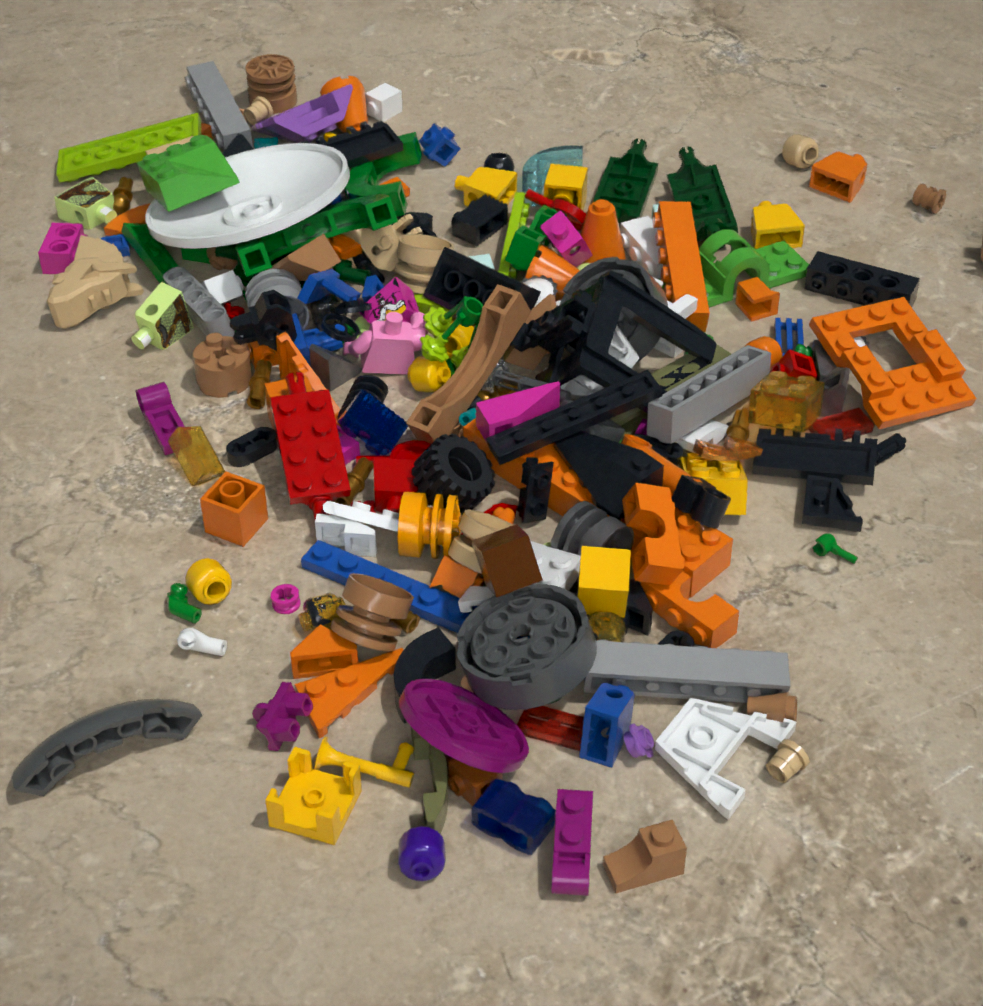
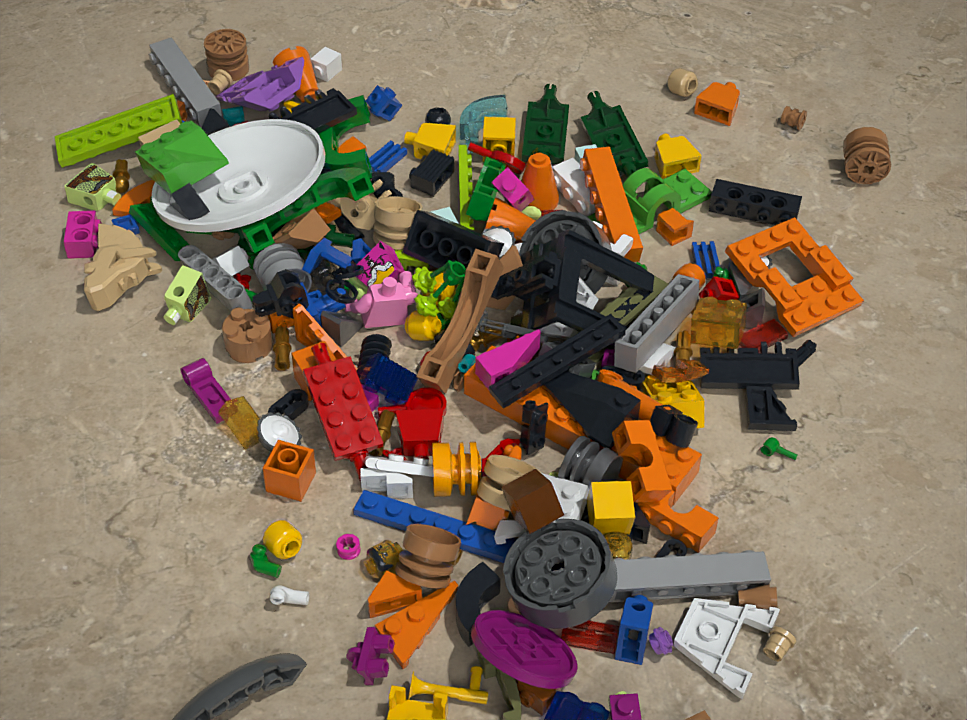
camera: 10 degrees left, 5 degrees up
(183, 218) = (188, 203): none -> black slope
(232, 461) = (277, 427): none -> white piece
(432, 200) = (382, 157): none -> blue tile
(454, 468) = (466, 418): black tyre -> none

